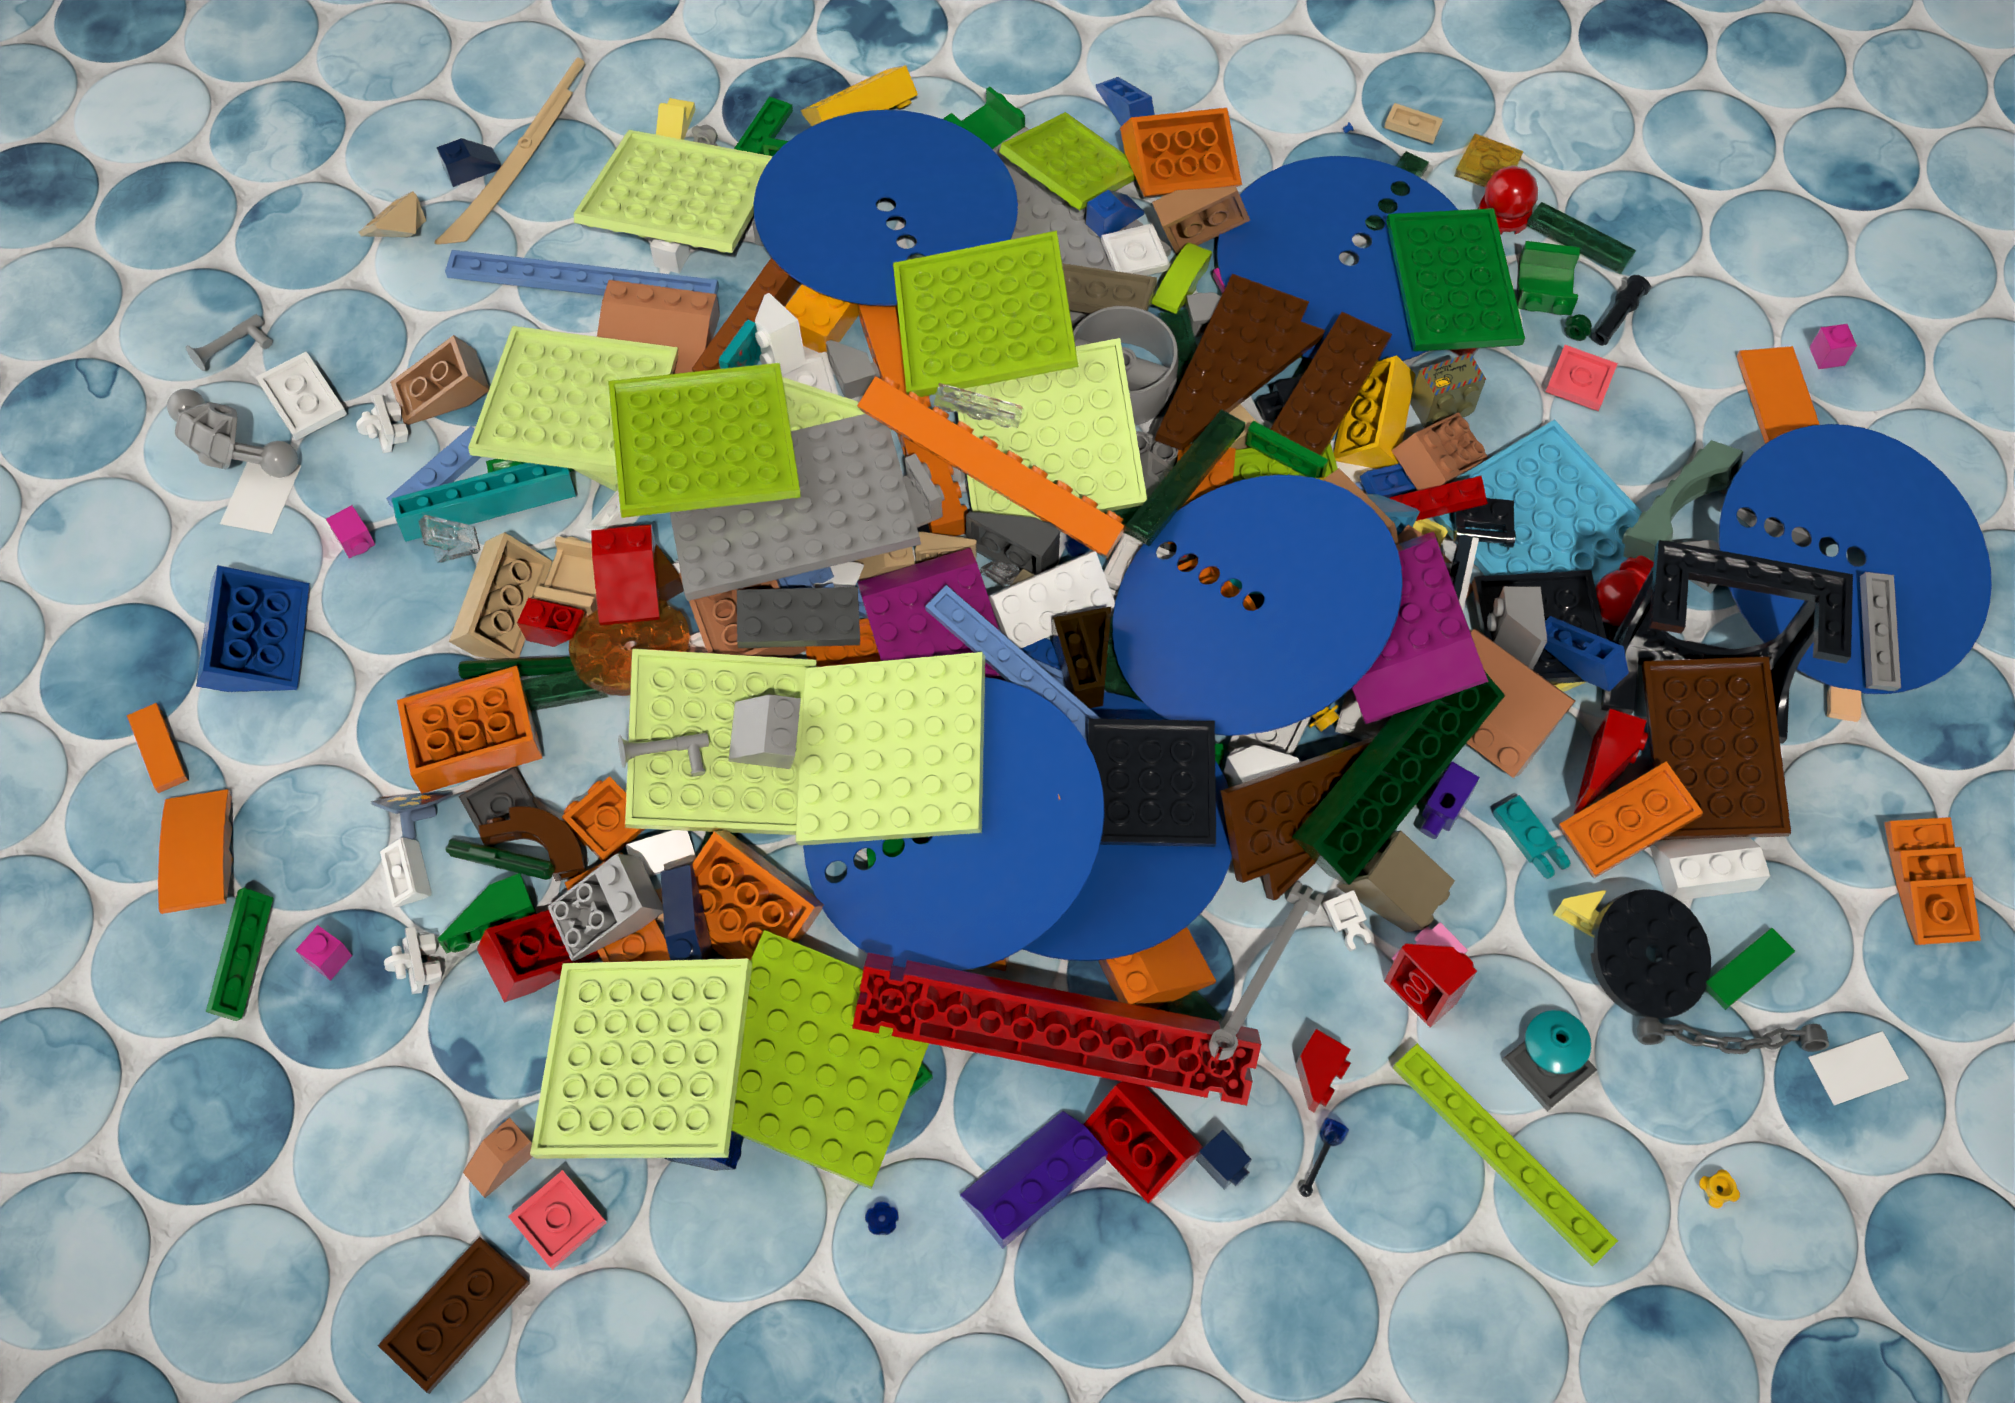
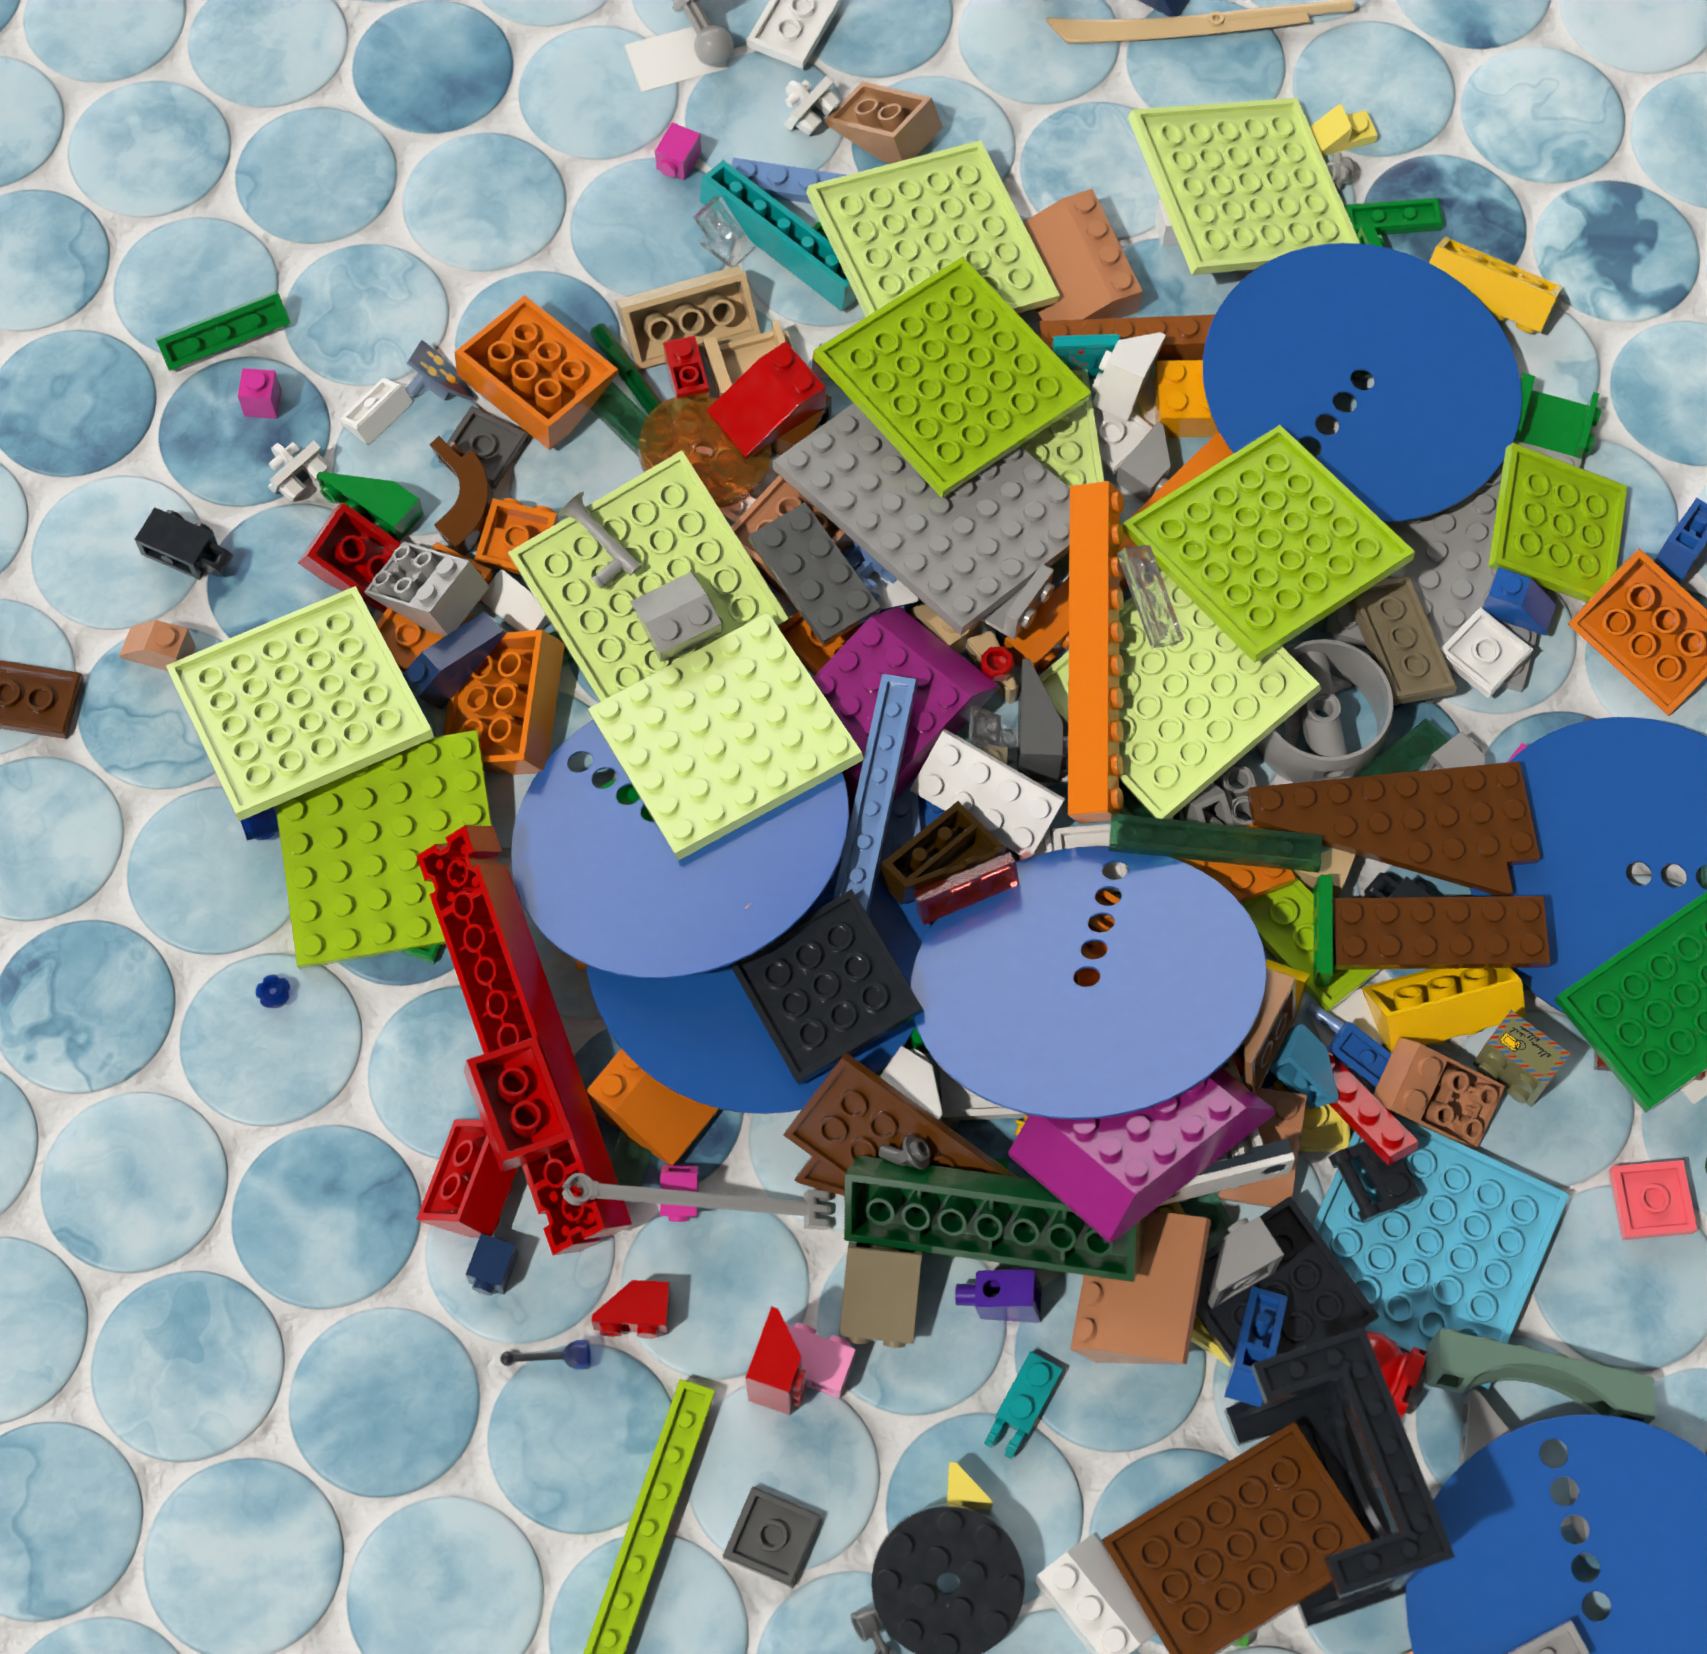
camera: 60 degrees right, 5 degrees up
(157, 748) = (375, 143): orange tile -> none
(194, 851) = (294, 235): orange slope -> none
(252, 632) = (528, 141): blue slope -> none
(419, 1088) = (181, 544): none -> black brick
(500, 858) = (425, 475): dark green axle -> none
(557, 1219) = (128, 725): coral plate -> none
(560, 275) = (1087, 161): medium blue plate -> none
(952, 538) = (997, 663): none -> red tile
(1034, 1178) = (381, 1103): dark purple slope -> none
(1121, 651) = (966, 888): none -> clear red plate
(1121, 1056) = (517, 1103): none -> red slope
(1182, 277) = (1486, 716): lime slope -> none
(1199, 214) = (1564, 686): medium nougat slope -> none
(1235, 979) = (682, 1179): none -> dark pink brick
(1321, 791) = (913, 1153): none -> dark grey plate
(1346, 915) = (818, 1256): white plate -> none
(1548, 1051) = (801, 1551): teal dish -> none
(1611, 751) = (1158, 1438): red slope -> none
(1630, 819) = (1096, 1494): orange plate -> none

